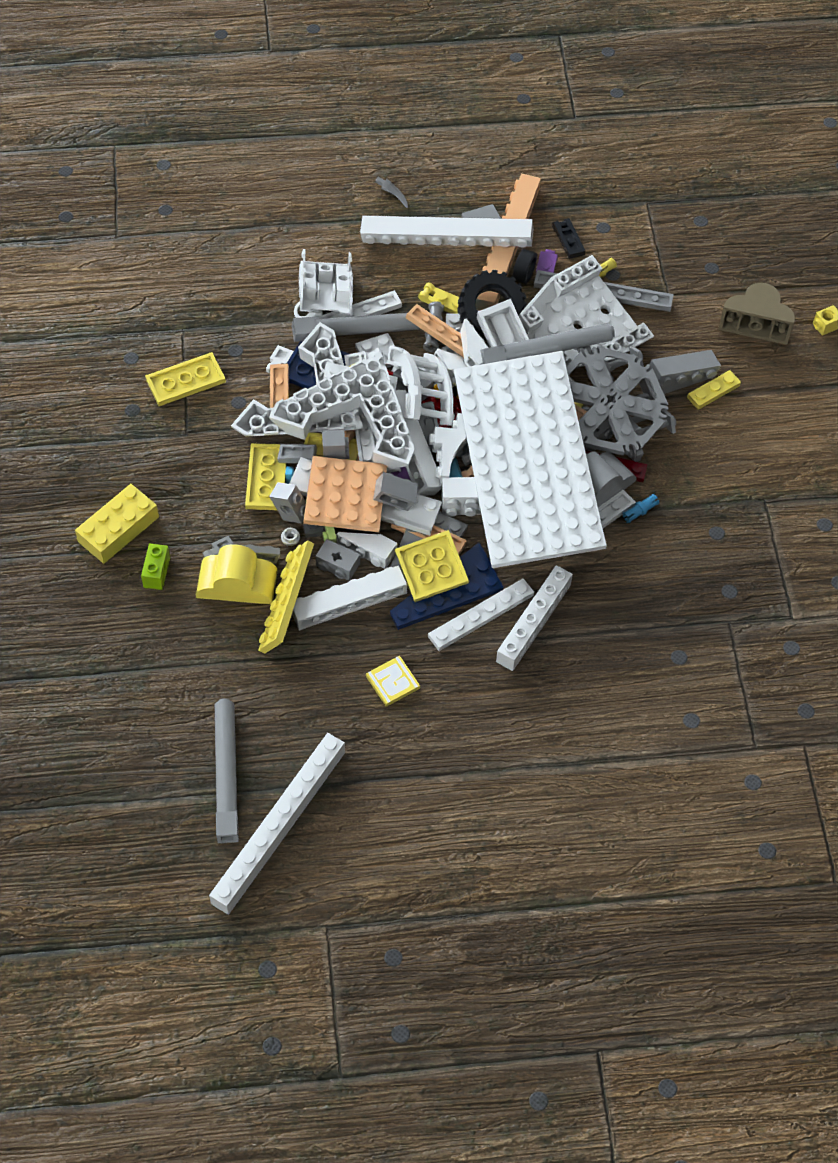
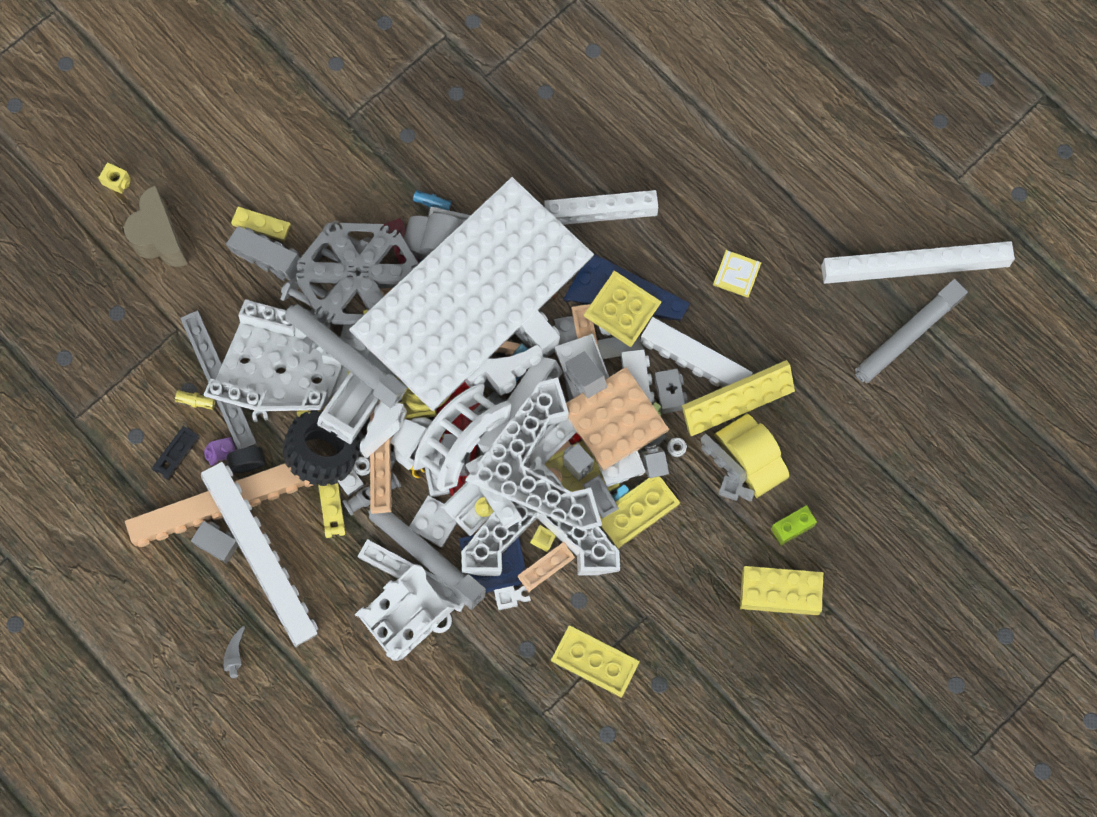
camera: 125 degrees left, 15 degrees up
(480, 614) = (629, 253): white plate -> none

